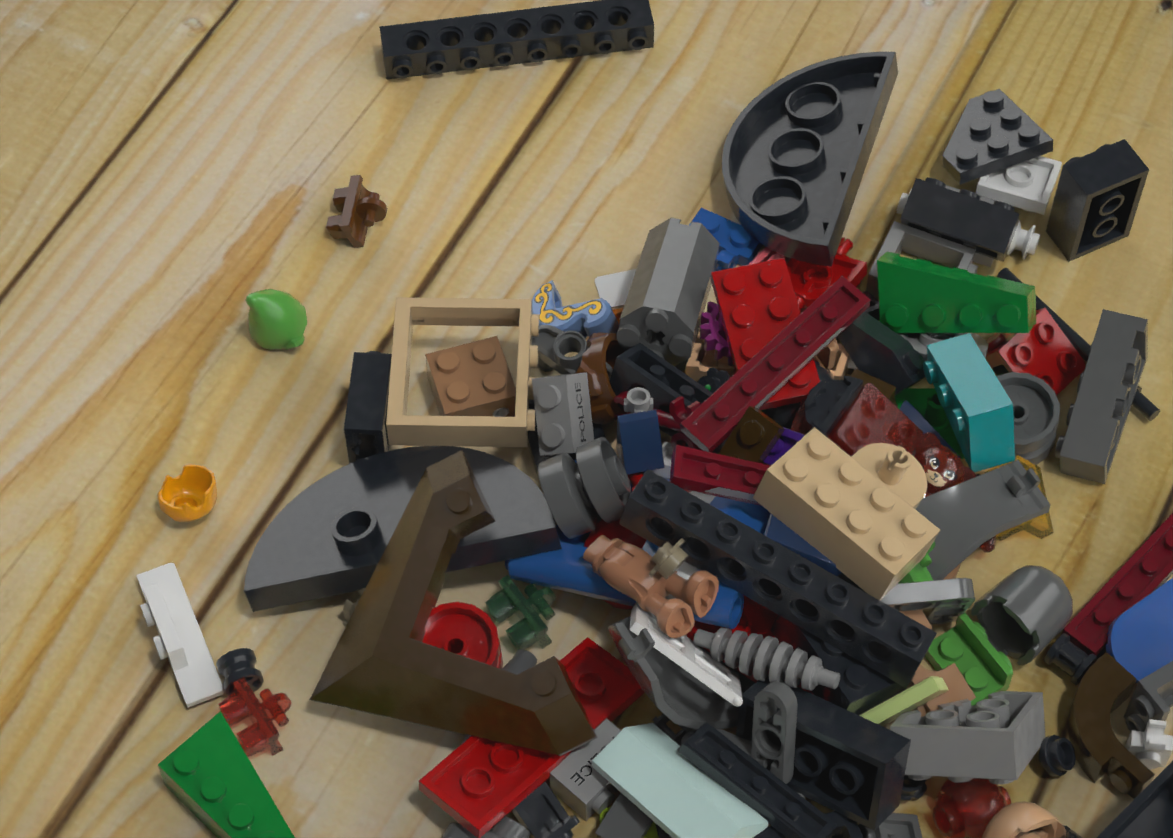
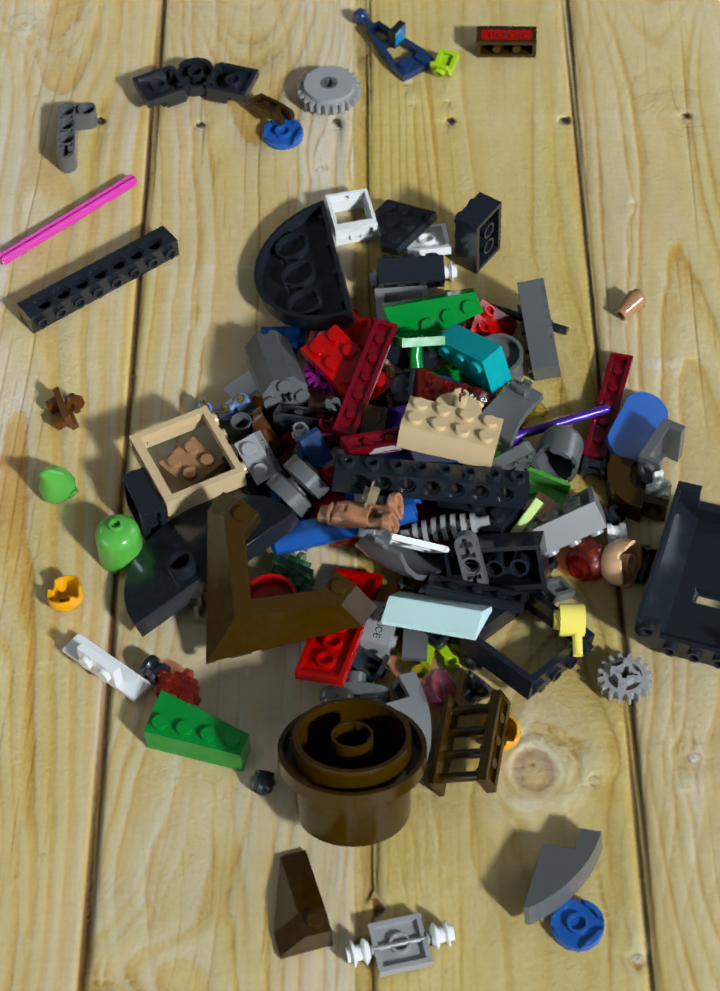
camera: 25 degrees left, 5 degrees down
(301, 449) = (118, 542): none -> bright green cylinder
(891, 337) = (415, 342): none -> green tile
(920, 117) = (356, 230): none -> white window
(1041, 788) = (615, 532): none -> white wheel
(1055, 562) = (567, 420): none -> dark purple piece

